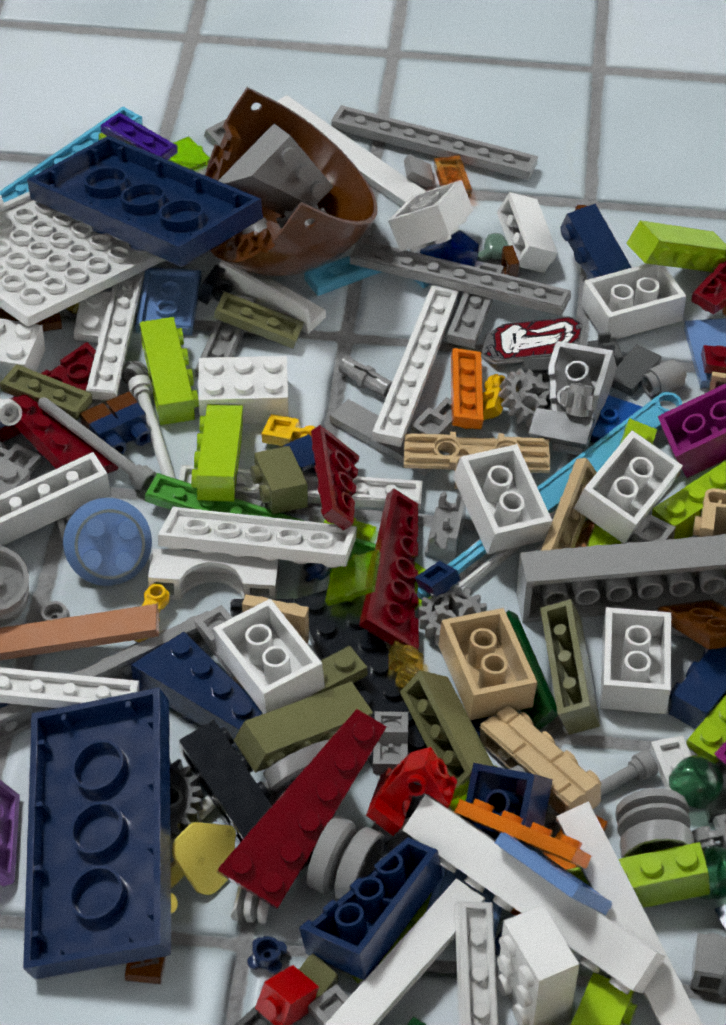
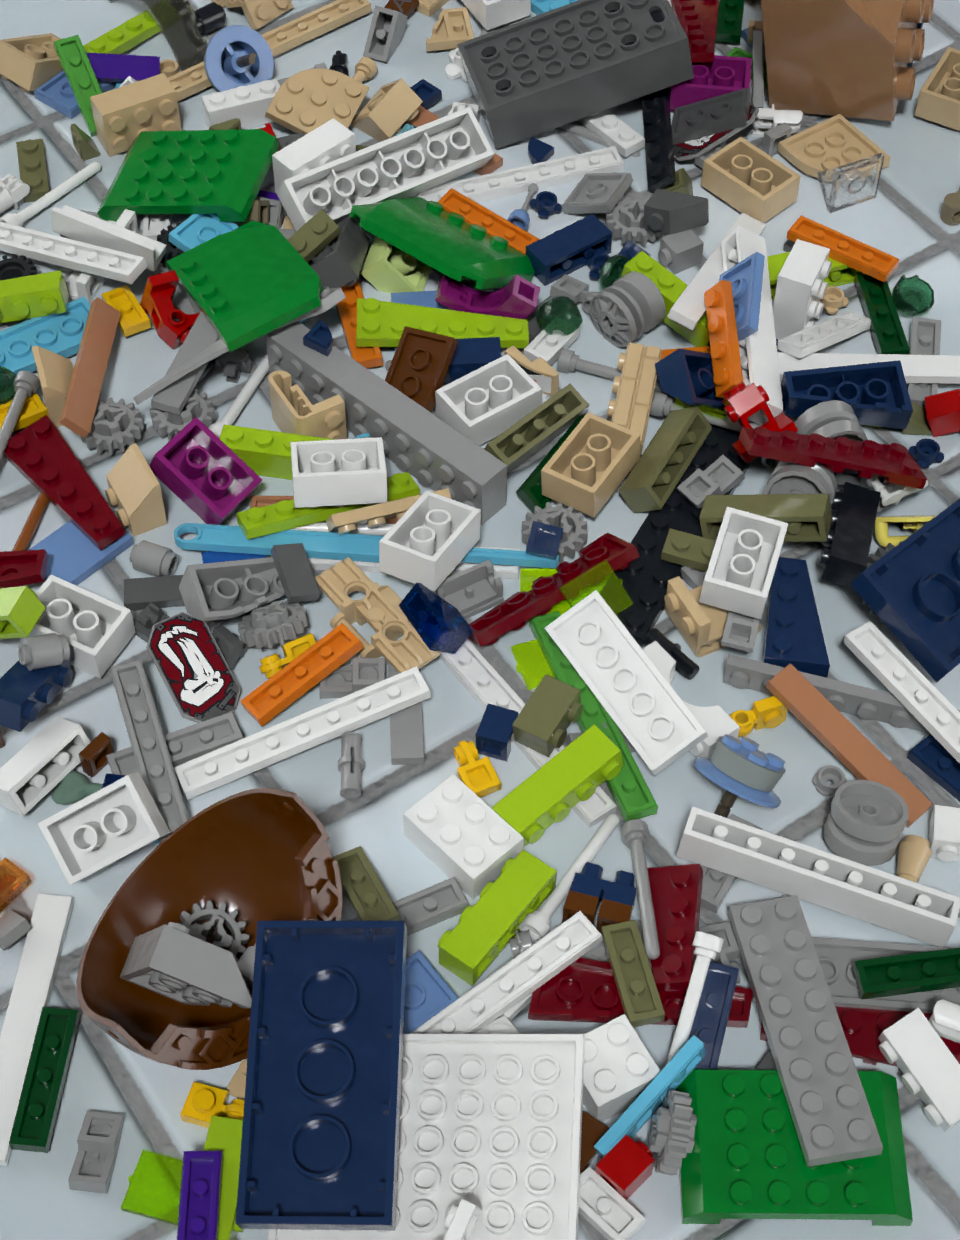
camera: 130 degrees left, 5 degrees up
(335, 477) = (515, 666): dark red wing -> none
(405, 661) = (632, 526): clear yellow plate -> none
(424, 470) = (435, 620): none -> clear blue slope
(579, 399) = (267, 558): light grey gear -> none
(609, 252) = (44, 651): none -> light grey brick
(641, 725) = (538, 370): none -> tan slope

